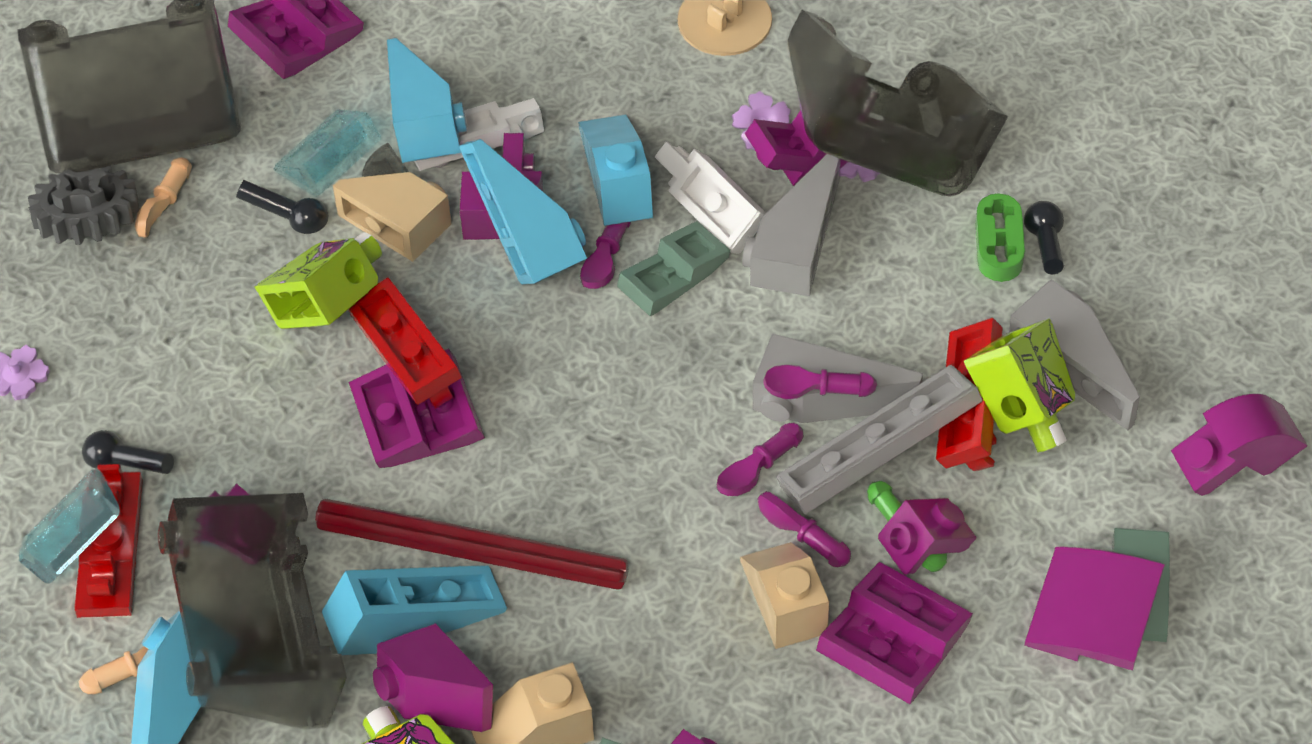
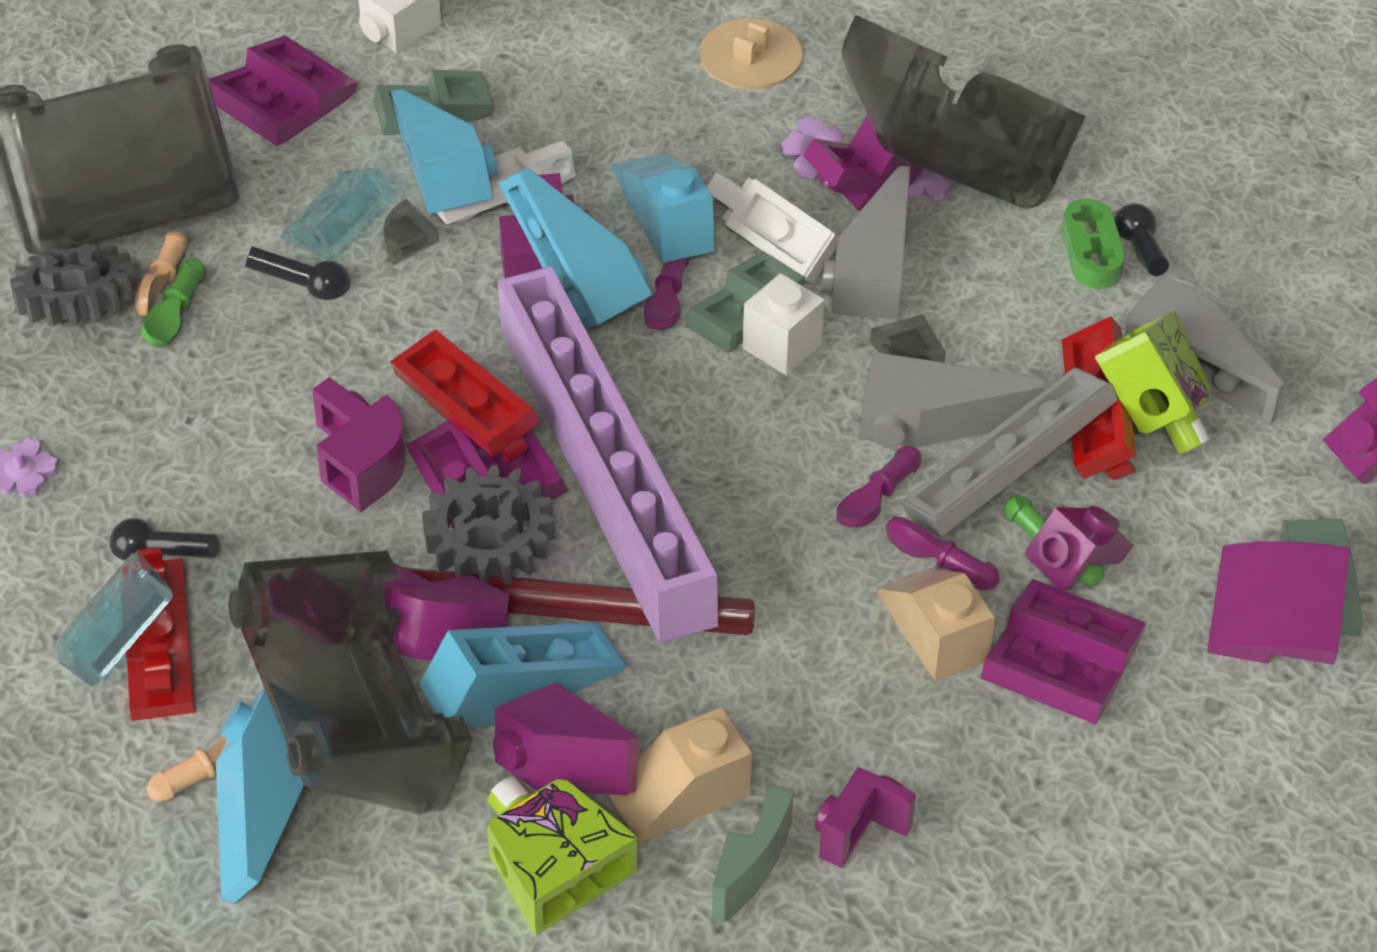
camera: 10 degrees left, 5 degrees down
(159, 242) = (164, 320): none -> bright green piece
(313, 384) = (364, 444): none -> magenta brick
(321, 282) = (379, 329): lime torso -> none
(346, 545) = (435, 607): none -> magenta brick
(395, 210) = (426, 264): tan slope -> none
(403, 471) = (488, 525): none -> dark grey gear
(443, 46) = (454, 91): none -> sand green slope
(517, 413) = (609, 457): none -> lavender brick
(699, 296) = (783, 323): none -> white brick
(794, 382) = (909, 397): magenta piece -> none
(813, 320) = (908, 338): none -> clear smoke tile

